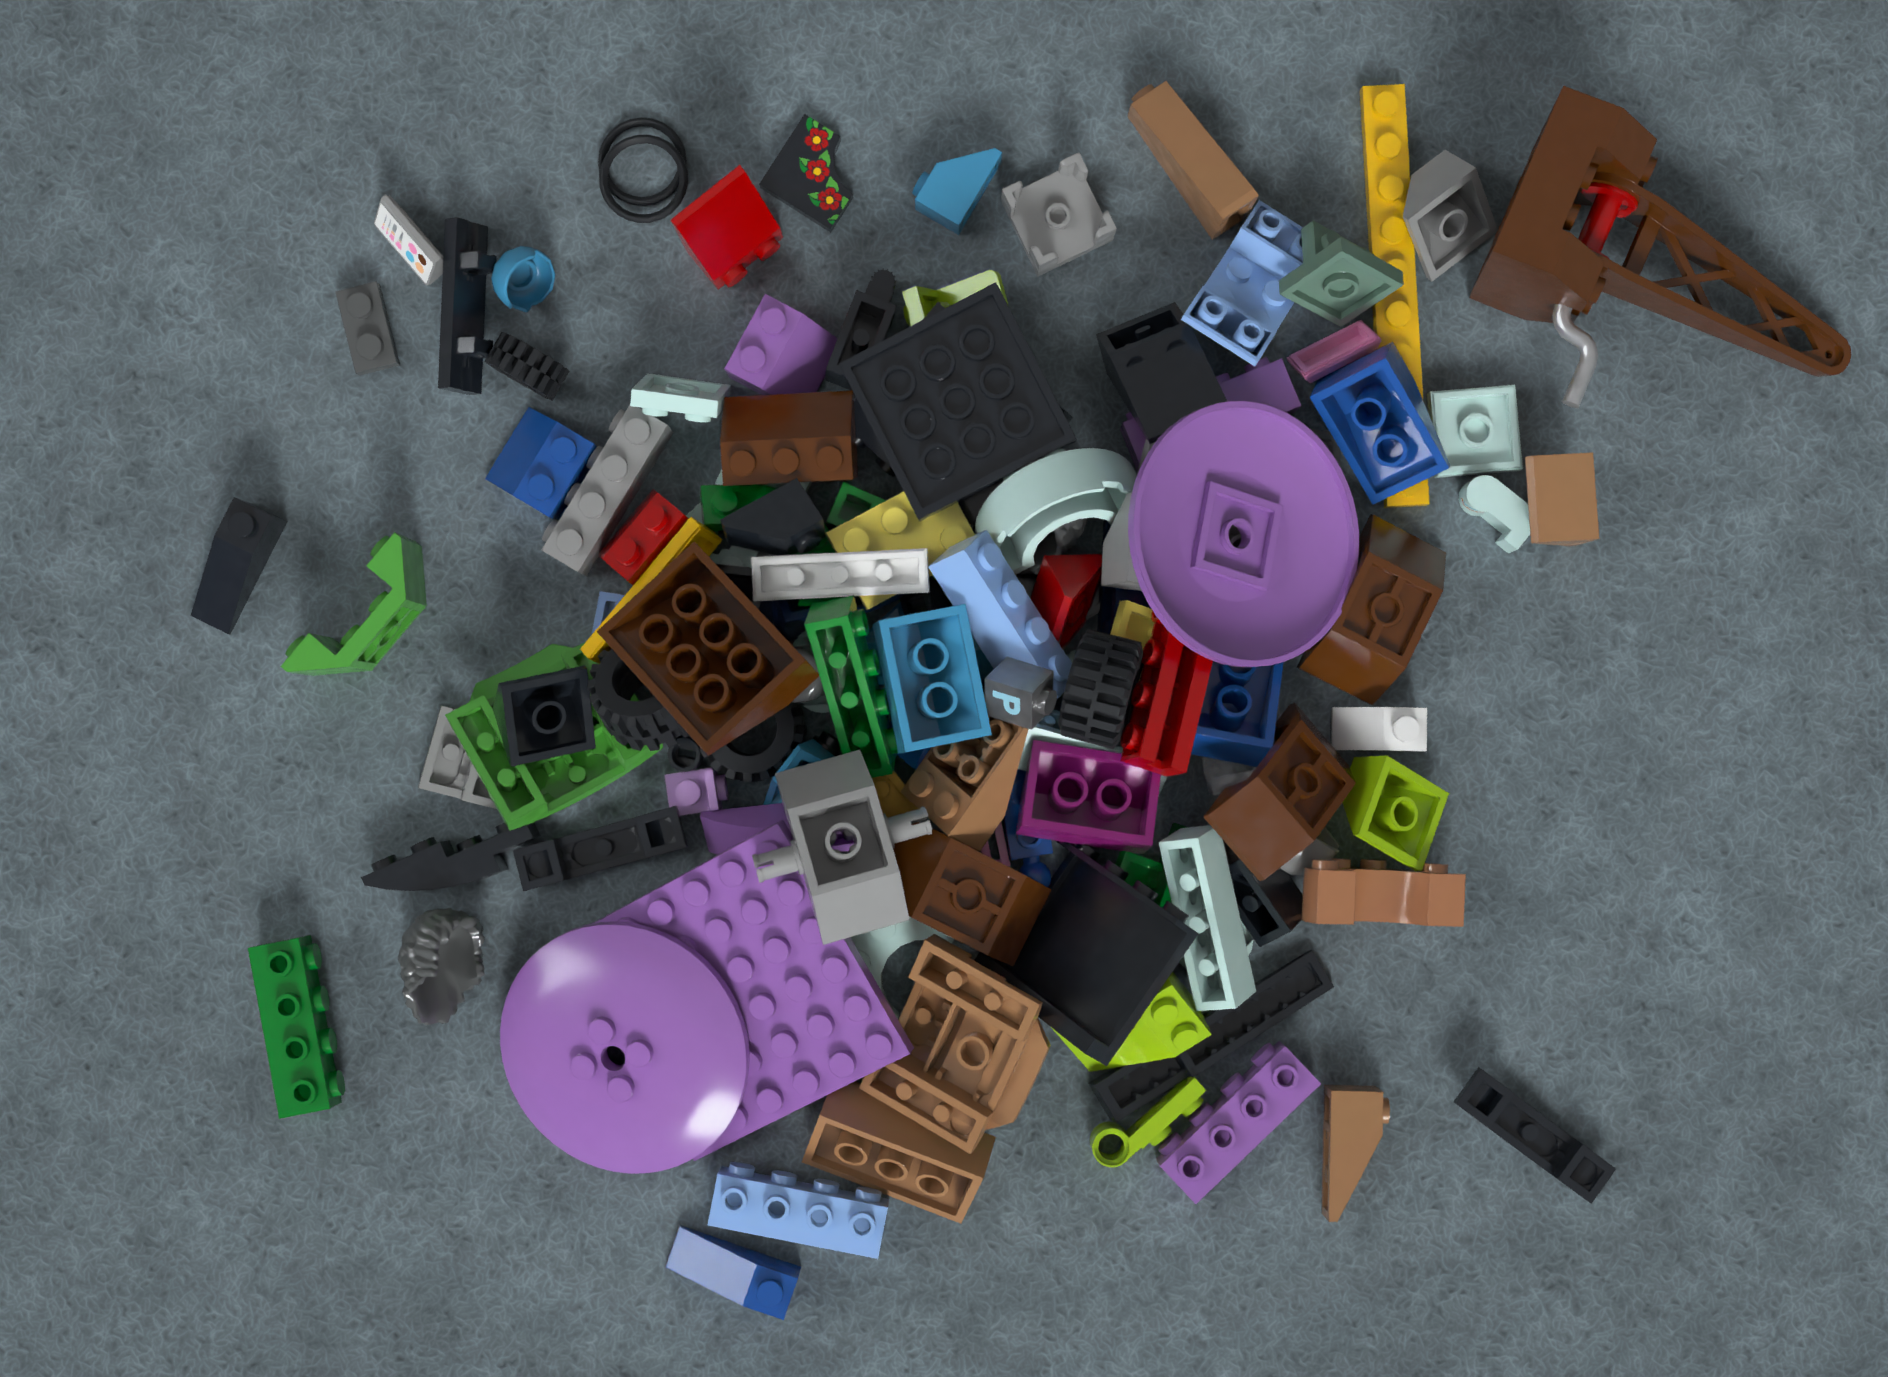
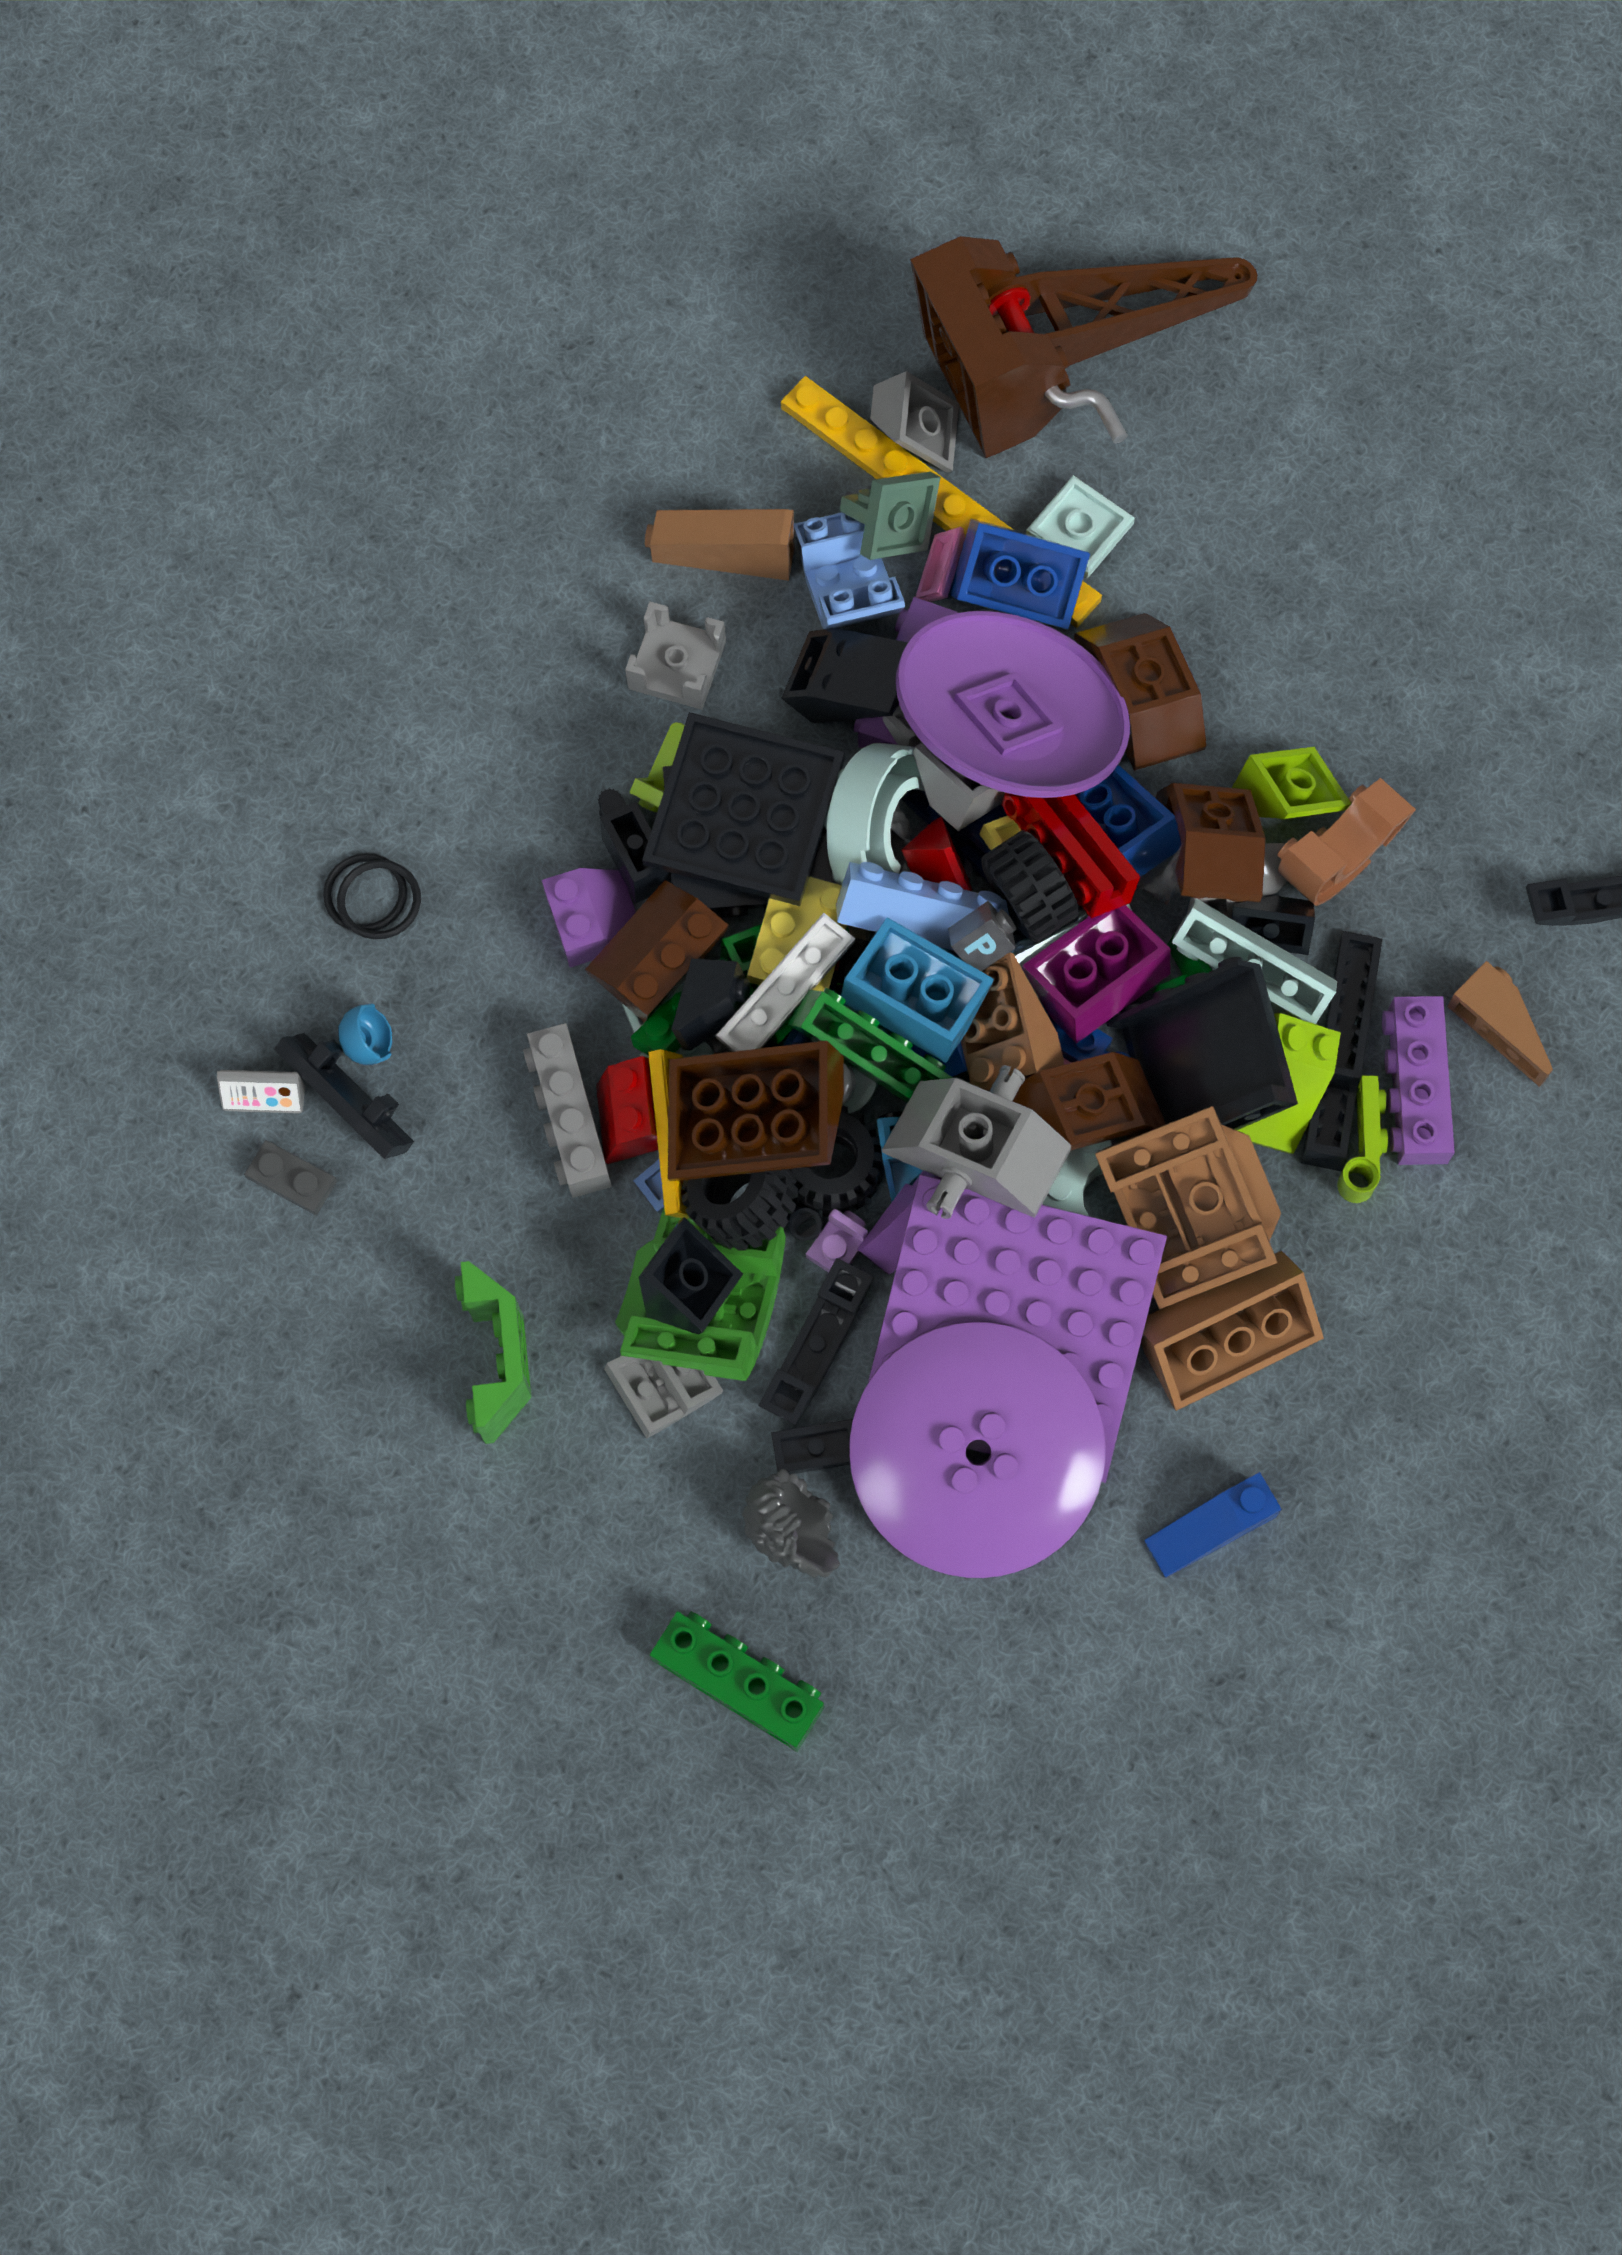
camera: 50 degrees left, 15 degrees down
(235, 563) = (363, 1418): black slope -> none
(438, 867) = (717, 1471): black slope -> none
(519, 917) = (812, 1447): none -> black plate
(527, 366) = (430, 1083): black tyre -> none
(542, 463) = (504, 1140): blue slope -> none
(692, 397) = (568, 991): light aqua plate -> none
(728, 229) = (475, 865): red slope -> none
(798, 1210) = (1210, 1438): light blue brick -> none
(806, 175) = (485, 794): black tile -> none
(955, 188) = (591, 705): dark azure slope -> none
(1379, 728) = (1228, 750): white slope -> none
(1499, 507) = (1149, 554): light aqua leg -> none
(1562, 499) = (1180, 504): medium nougat slope -> none

